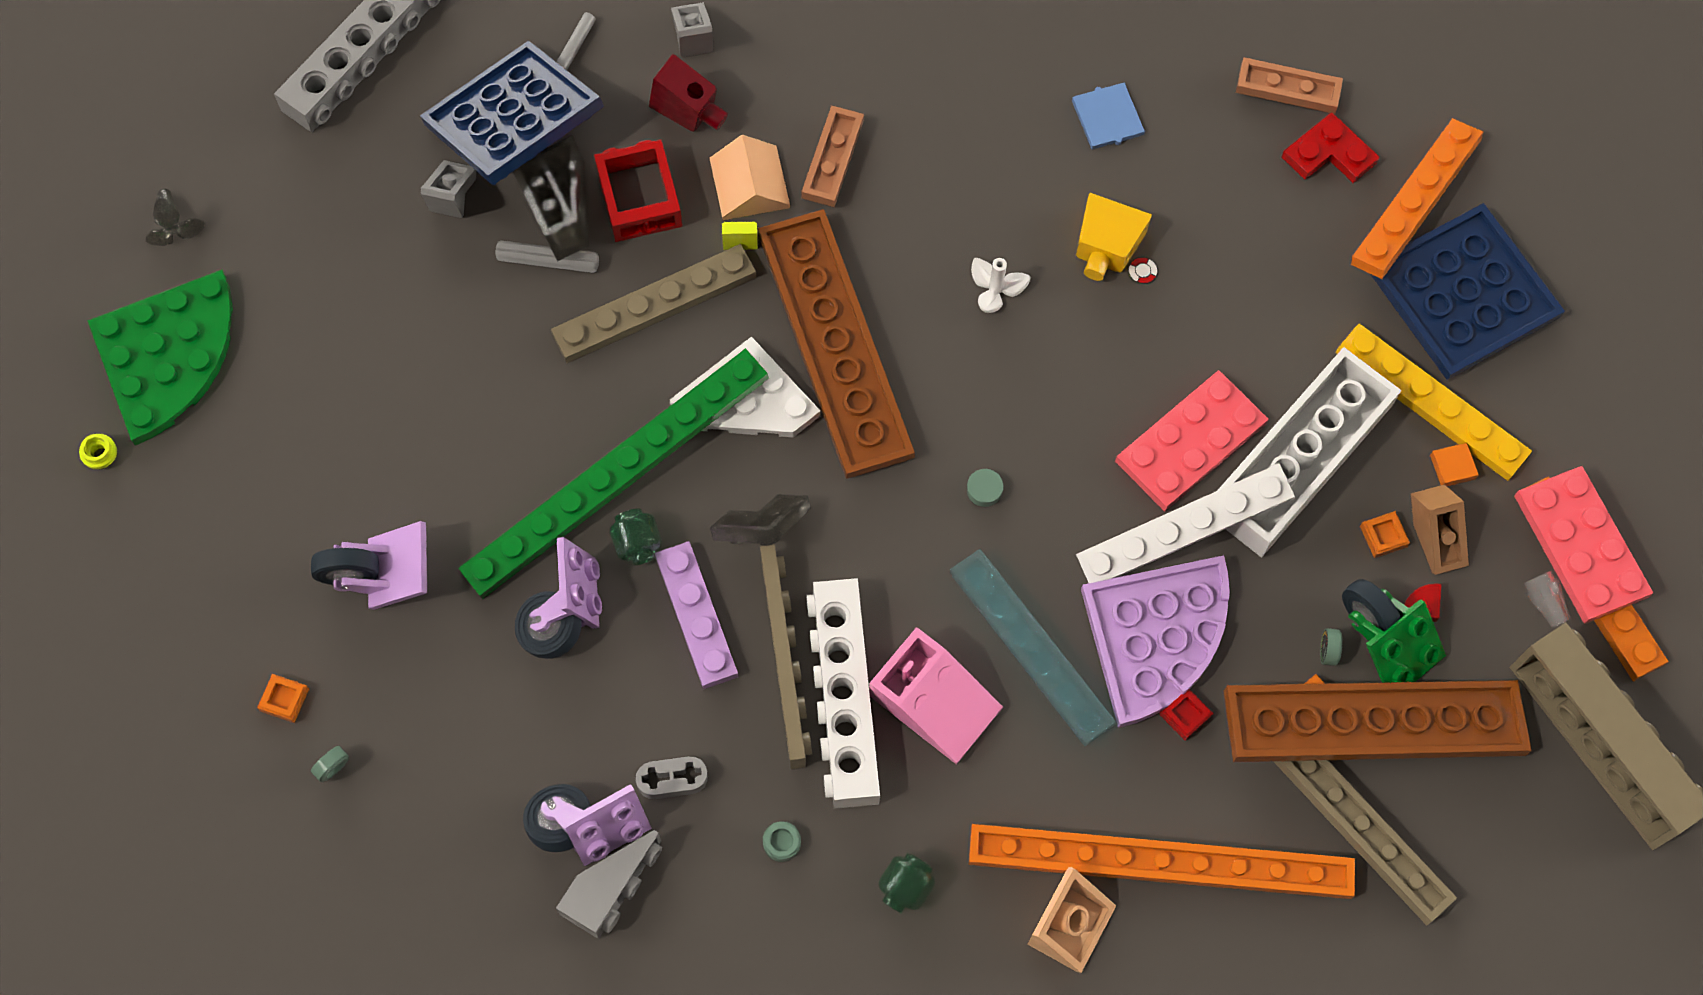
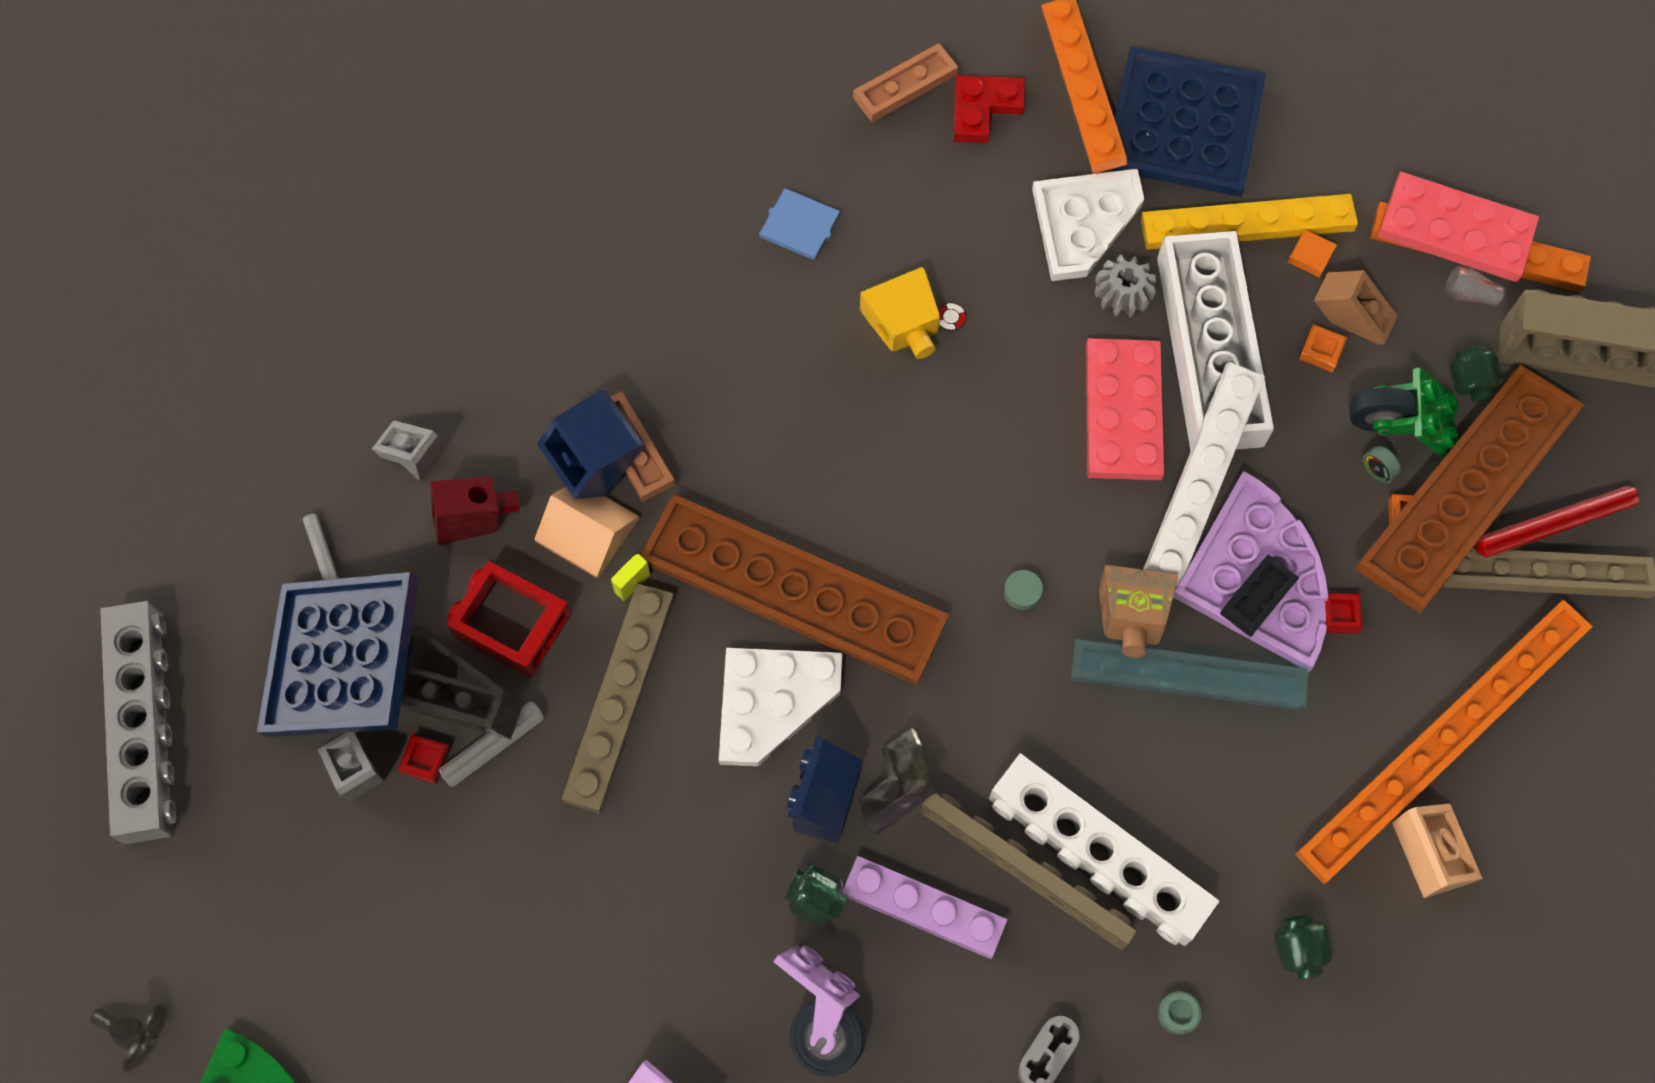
camera: 45 degrees left, 0 degrees up
(499, 226) = (424, 758): none -> red tile
(613, 473) = (742, 867): green plate -> none
(709, 478) = (826, 790): none -> dark blue slope
(800, 128) = (591, 446): none -> dark blue slope
(934, 696) = (1166, 783): bright pink slope -> none
(994, 278) = (867, 417): white plant -> none
(1044, 568) = (1135, 606): none -> medium nougat torso
(1134, 640) = (1259, 595): none -> black plate
(1290, 349) = (1112, 283): none -> light grey gear
(1312, 289) = (1084, 218): none -> white plate
(1414, 805) = (1557, 521): none -> red axle
(1431, 595) = (1399, 368): red tile -> none
(1476, 654) = (1476, 373): none -> clear green head

